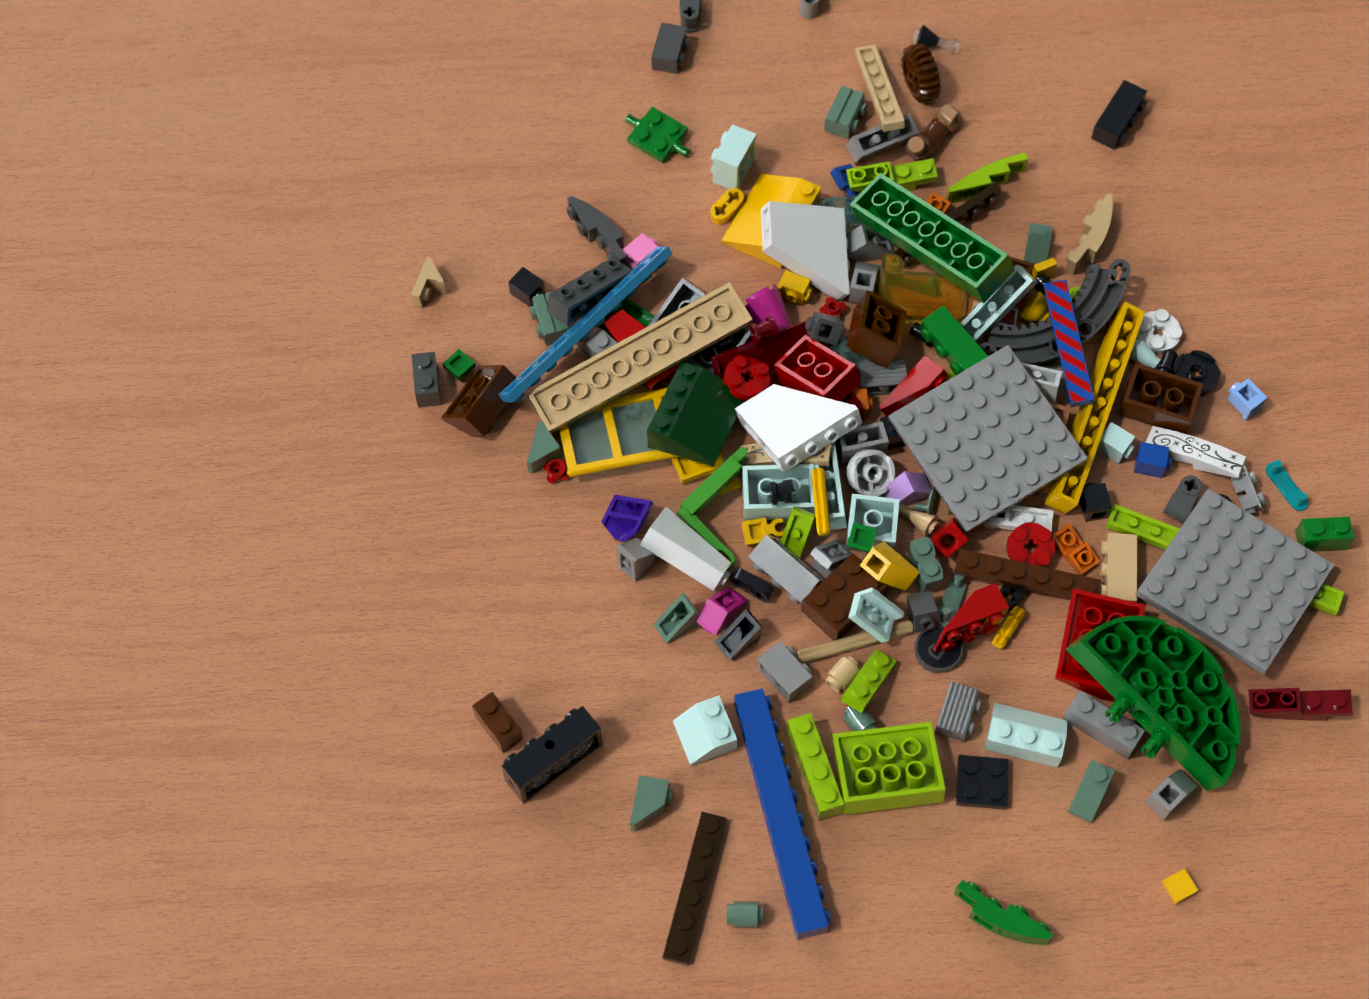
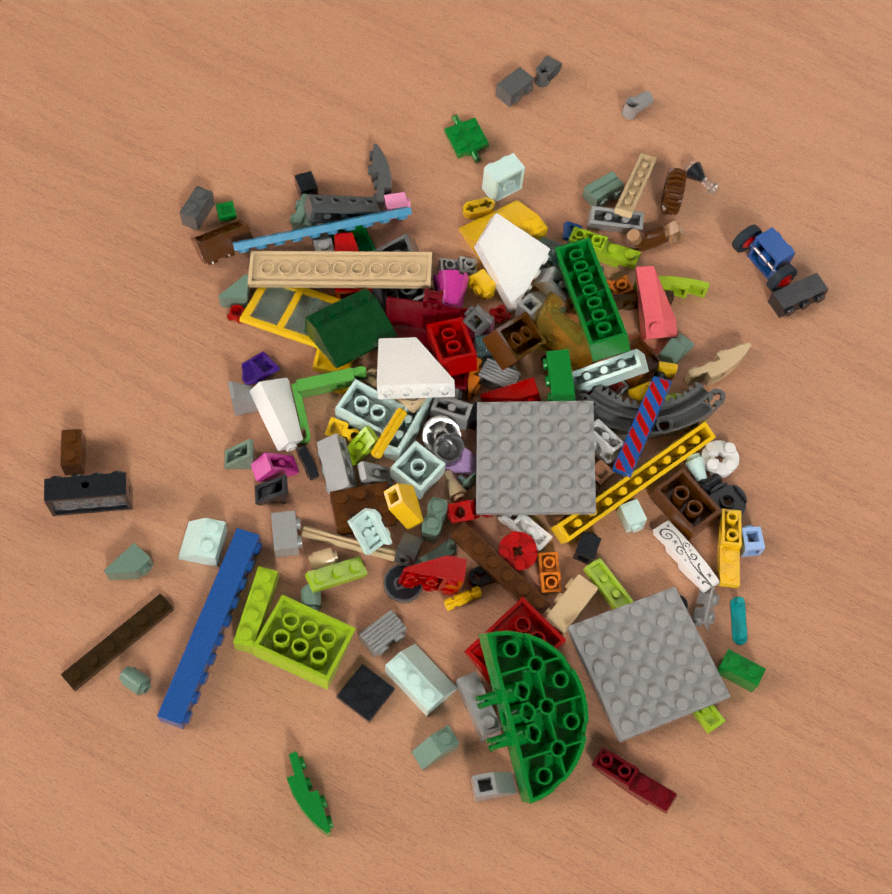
camera: 25 degrees right, 0 degrees up
(428, 280) = (244, 147): tan slope -> none
(750, 367) = (405, 314): red plate -> none
(755, 280) = (463, 264): none -> light grey slope
(780, 492) = (364, 410): black wheel -> none
(861, 537) = (397, 472): green plate -> none
(890, 480) = (448, 447): none -> flat silver hair
(989, 212) = (654, 309): none -> coral wedge
(1063, 87) = (769, 254): none -> brick
(1152, 460) = (650, 543): blue brick -> none
(1179, 886) = (451, 856): yellow tile -> none
(1183, 500) = (651, 584): dark grey piece -> none
(1229, 418) = (729, 548): none -> yellow slope

